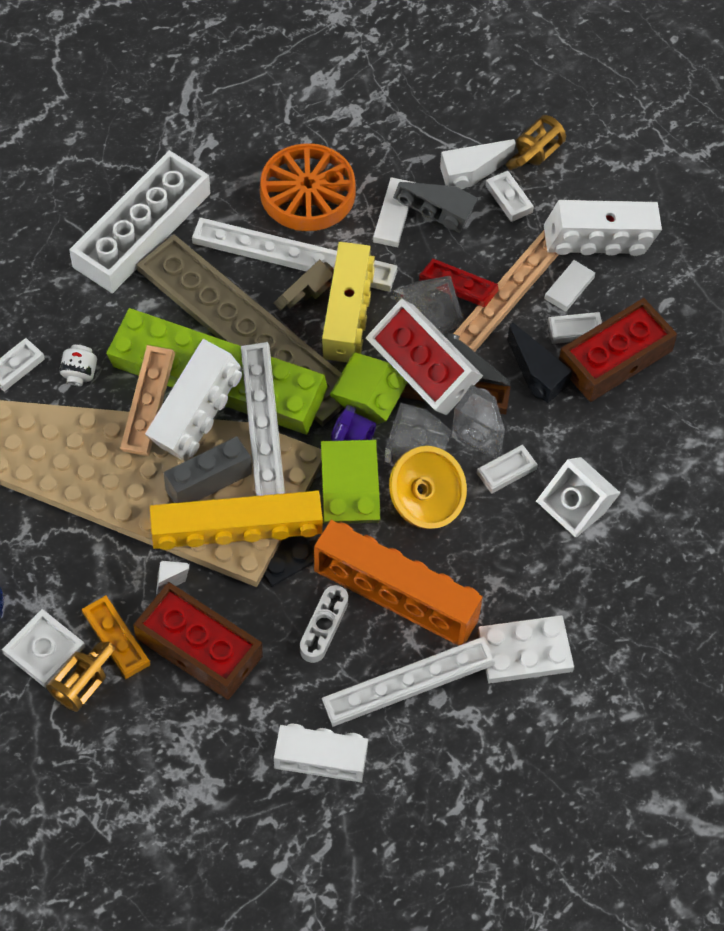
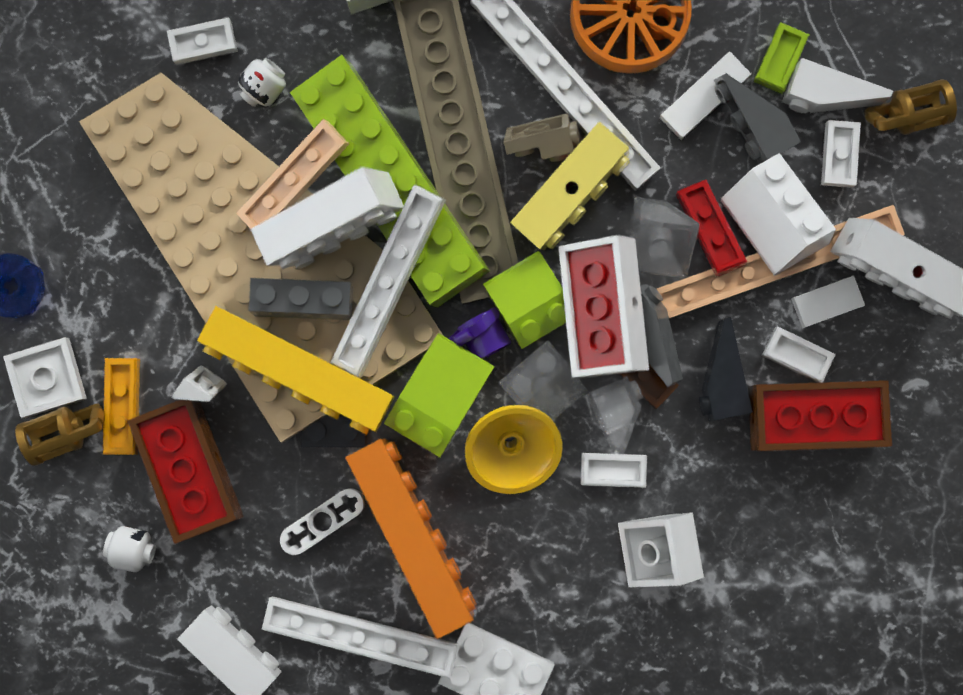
camera: 40 degrees right, 25 degrees up
(191, 725) = (129, 549): none -> white head
(427, 163) = (781, 58): none -> lime tile
(497, 247) = (778, 215): none -> white slope

